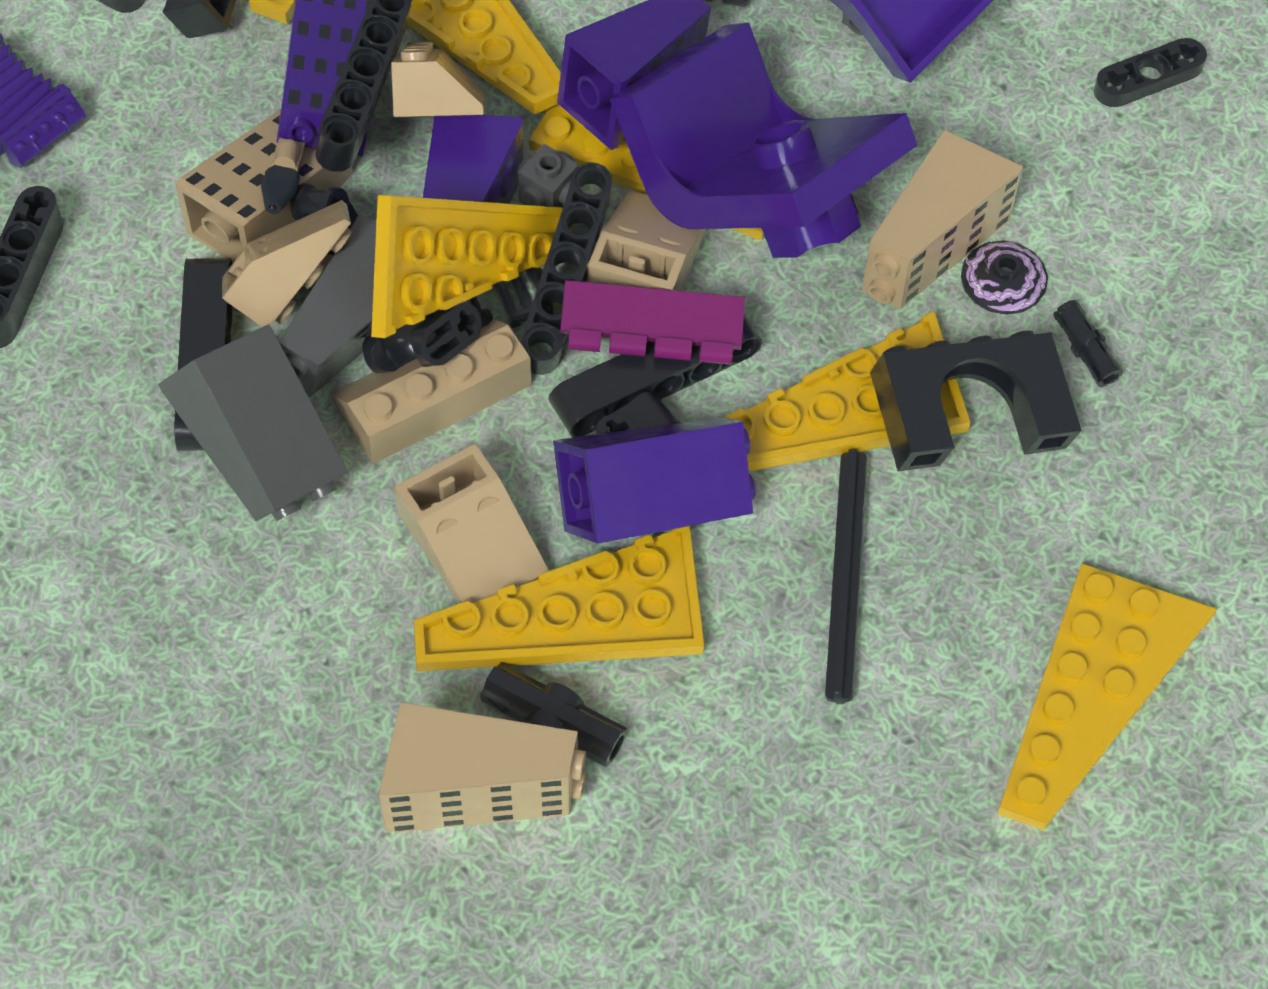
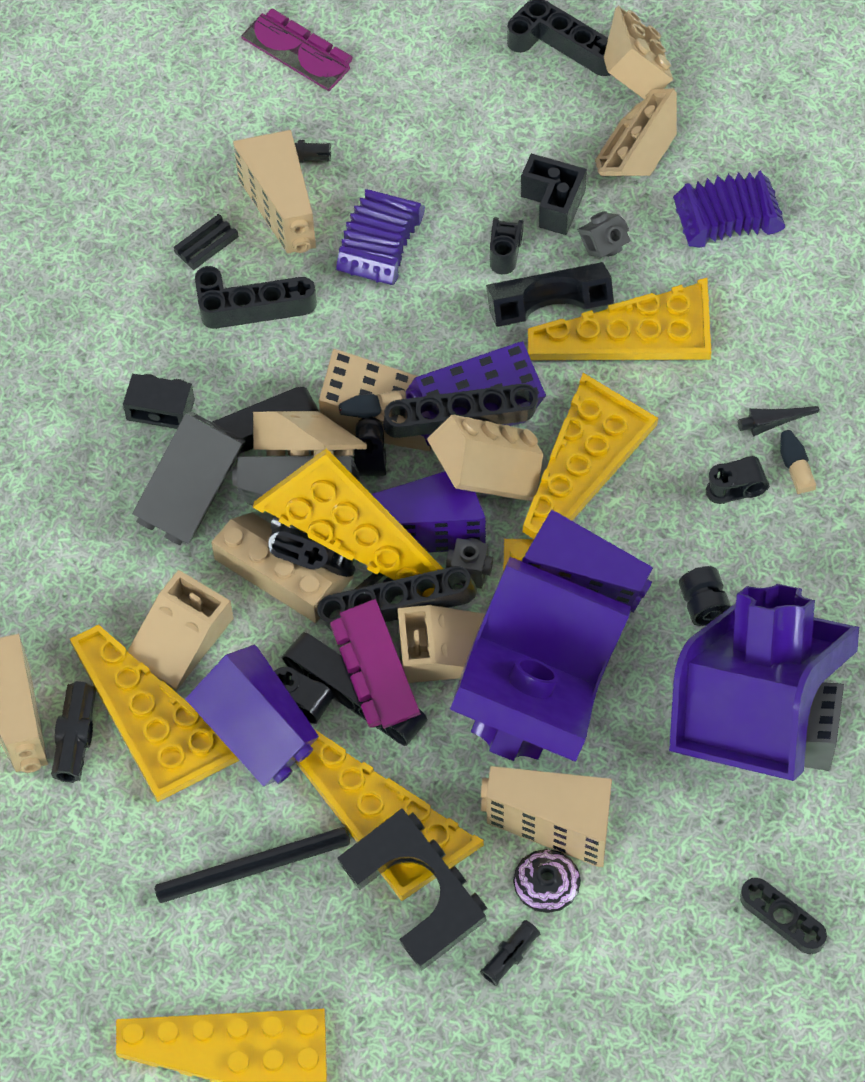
camera: 70 degrees right, 0 degrees up
(101, 430) = (157, 400): none -> black brick

